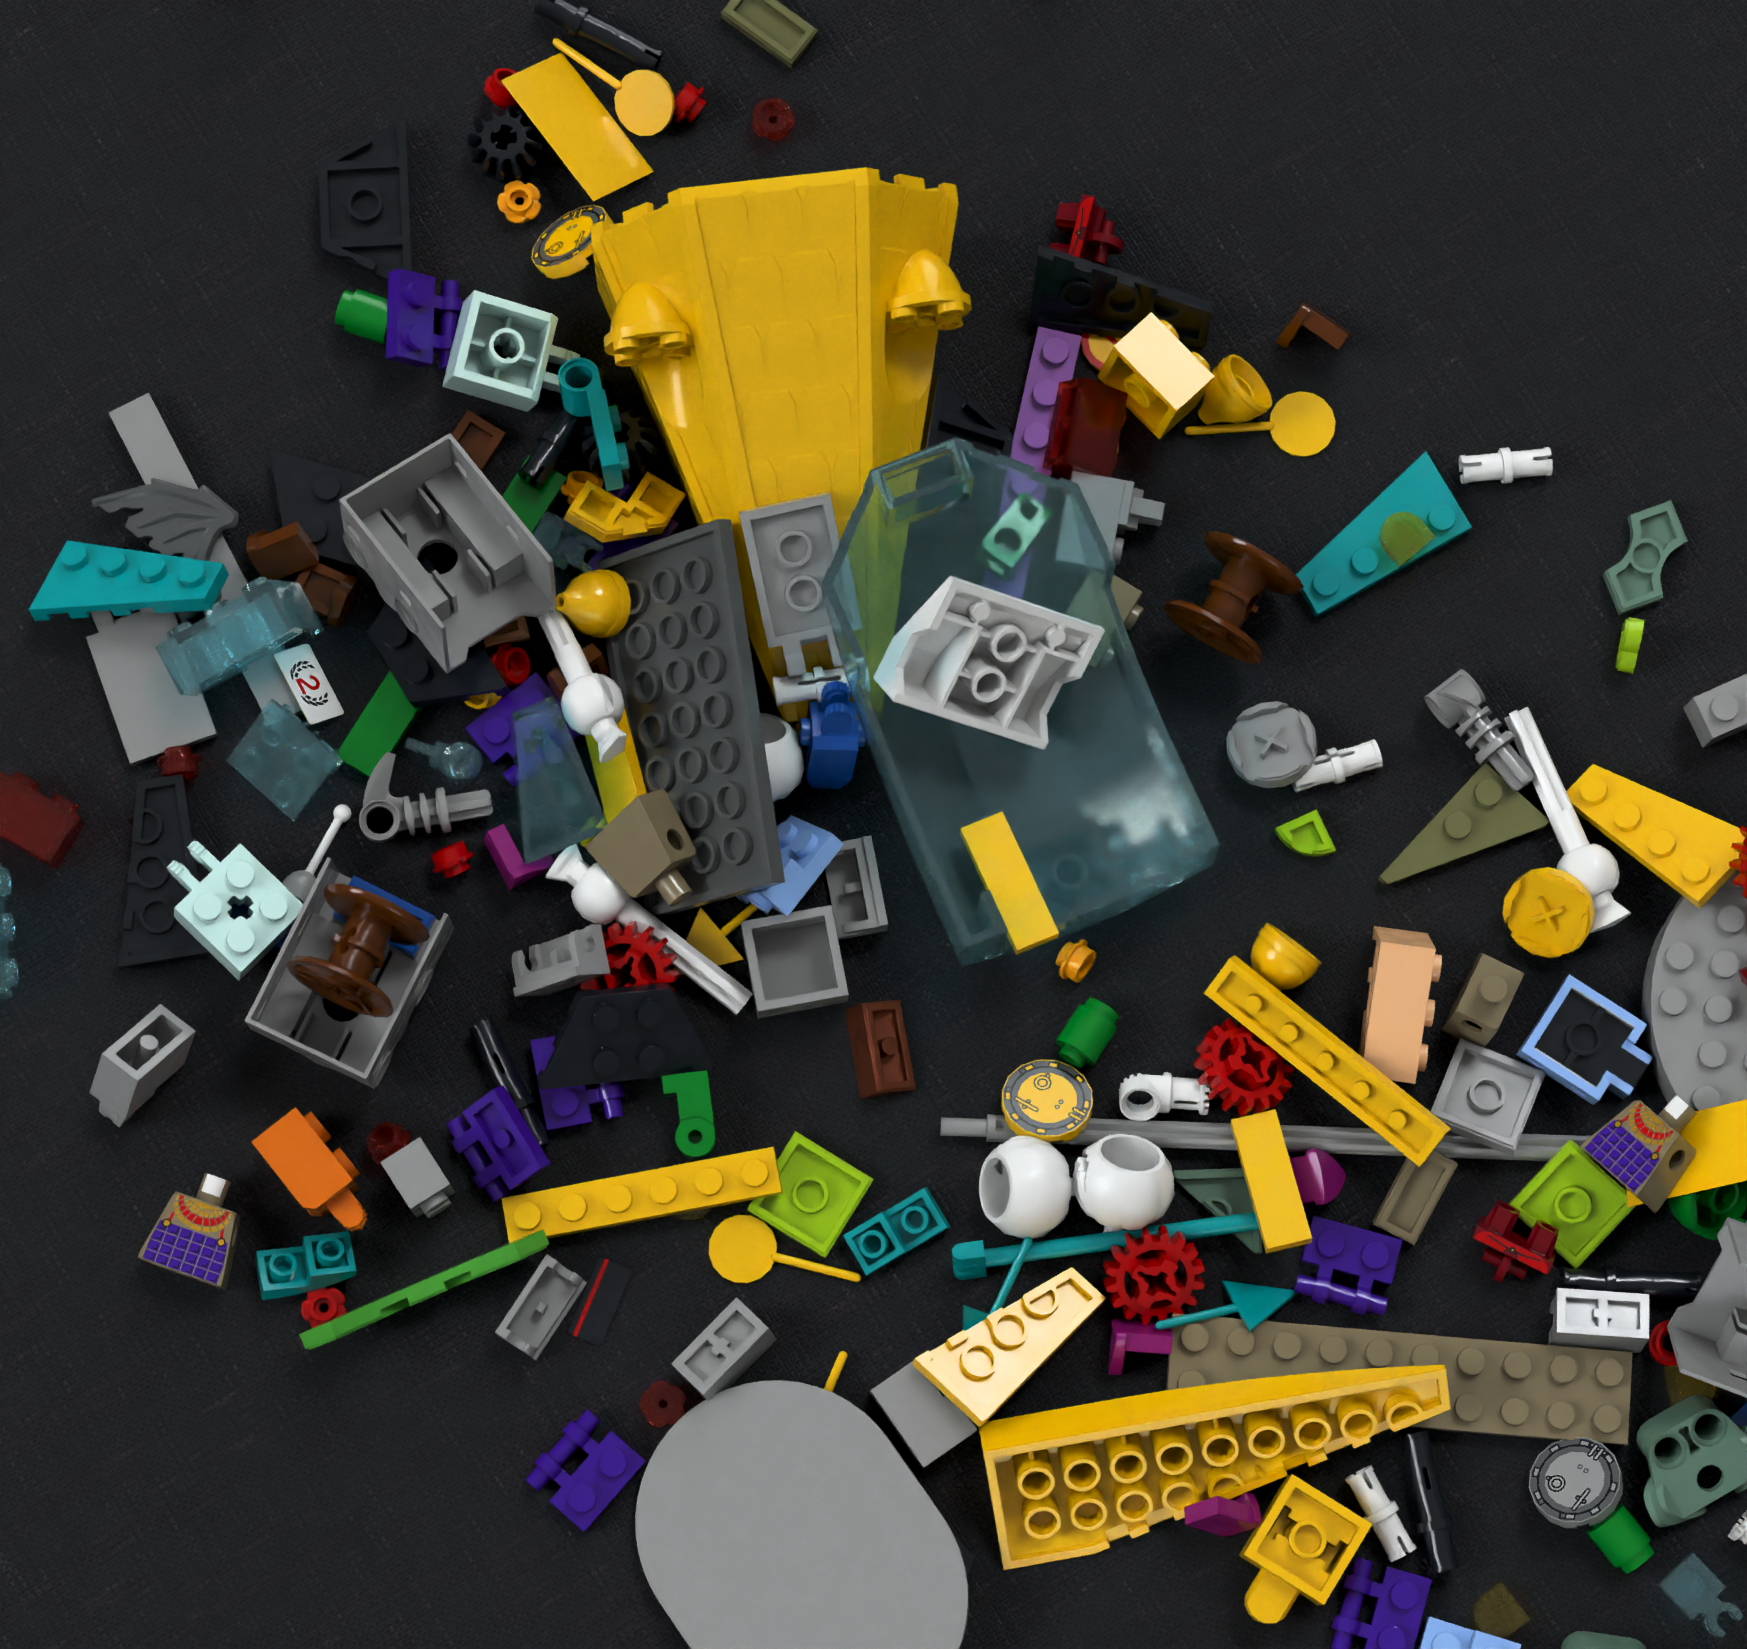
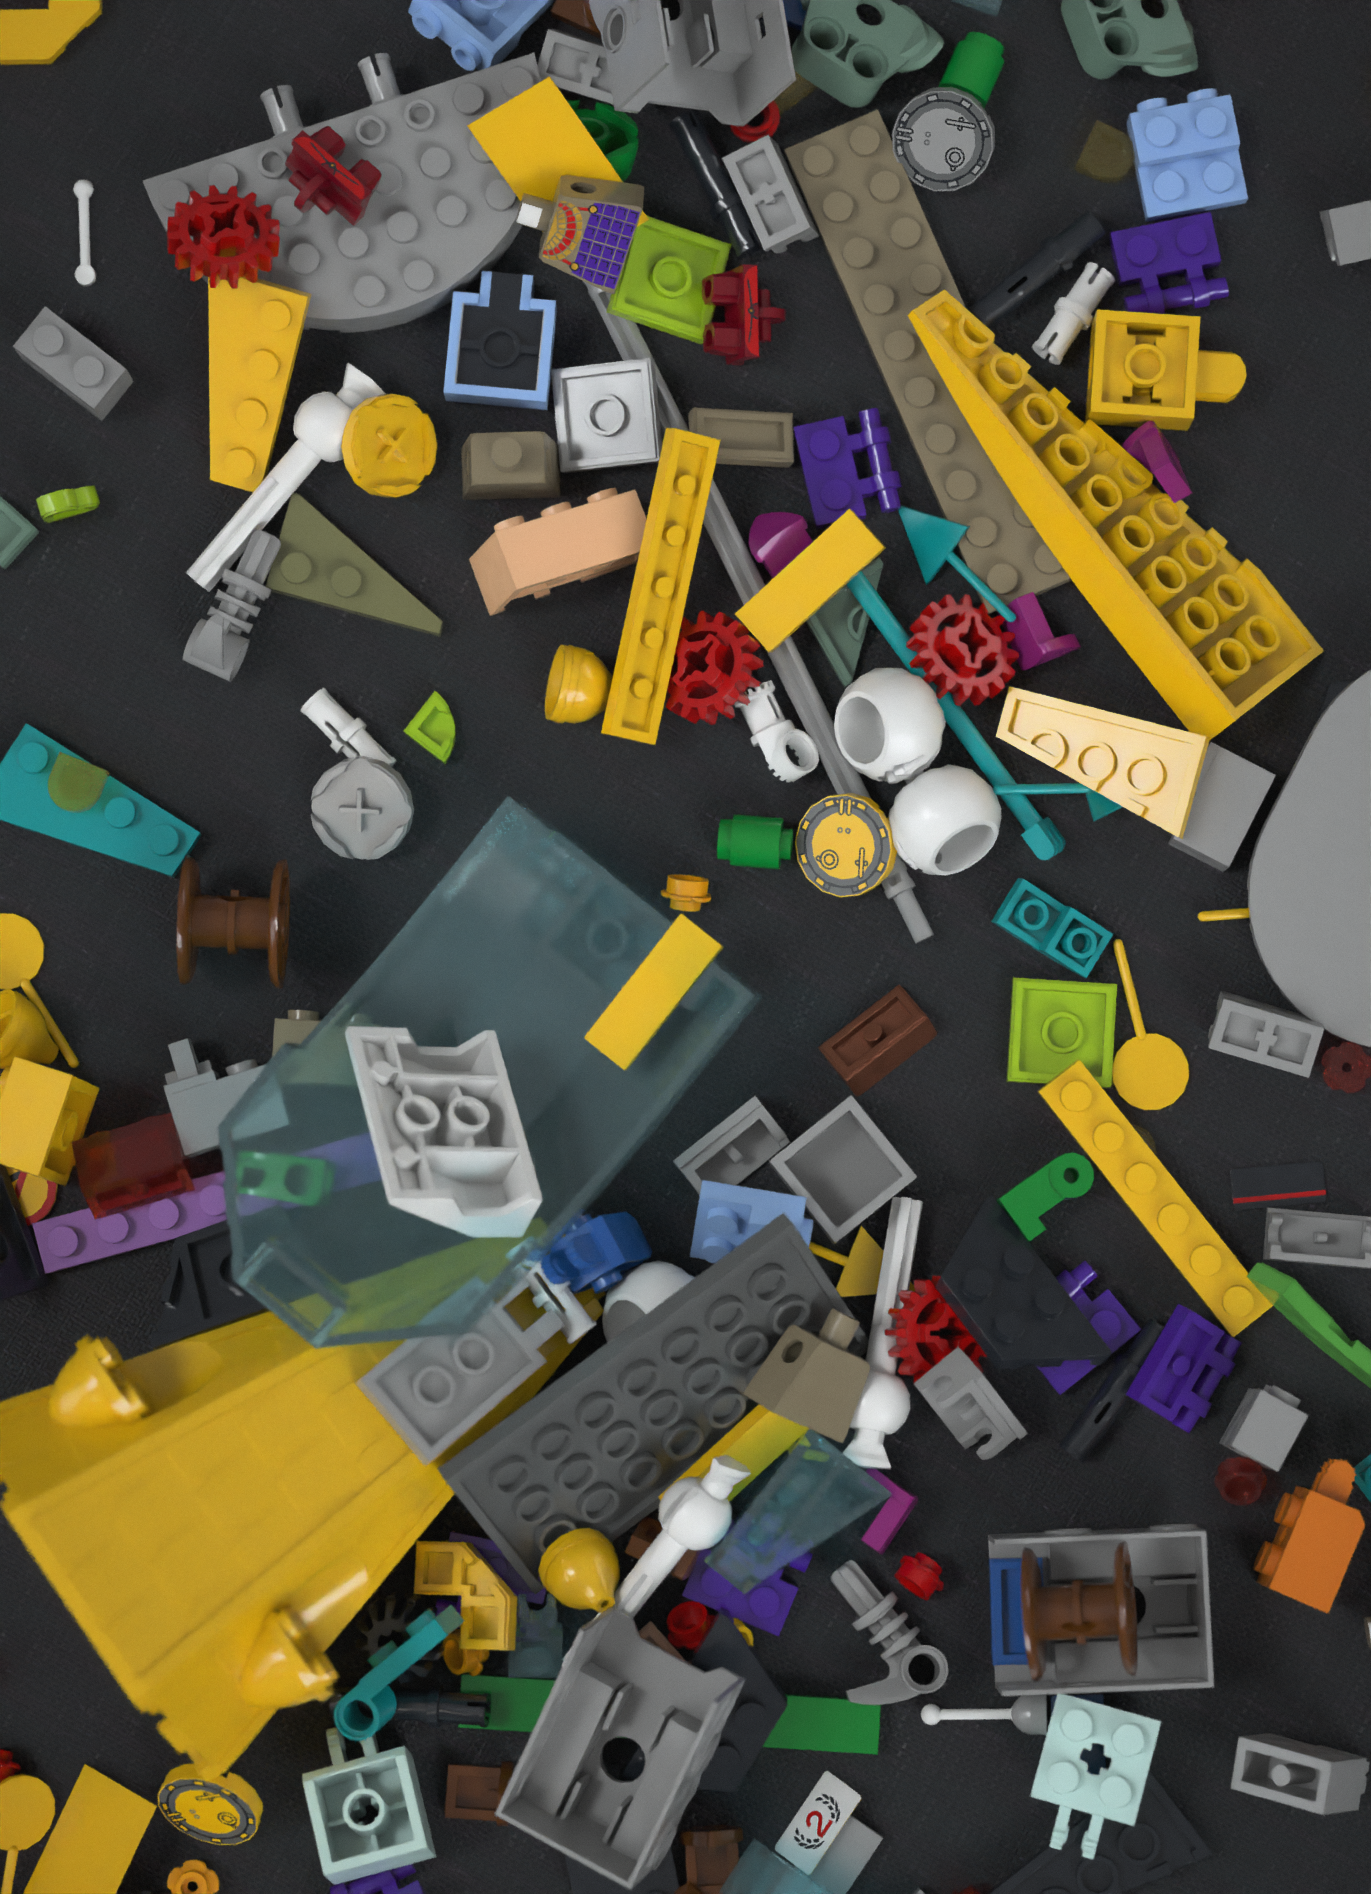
camera: 110 degrees left, 5 degrees up
(284, 758) = (909, 1803): clear light blue hinge -> none
(456, 761) = (818, 1625): clear light blue piece -> none

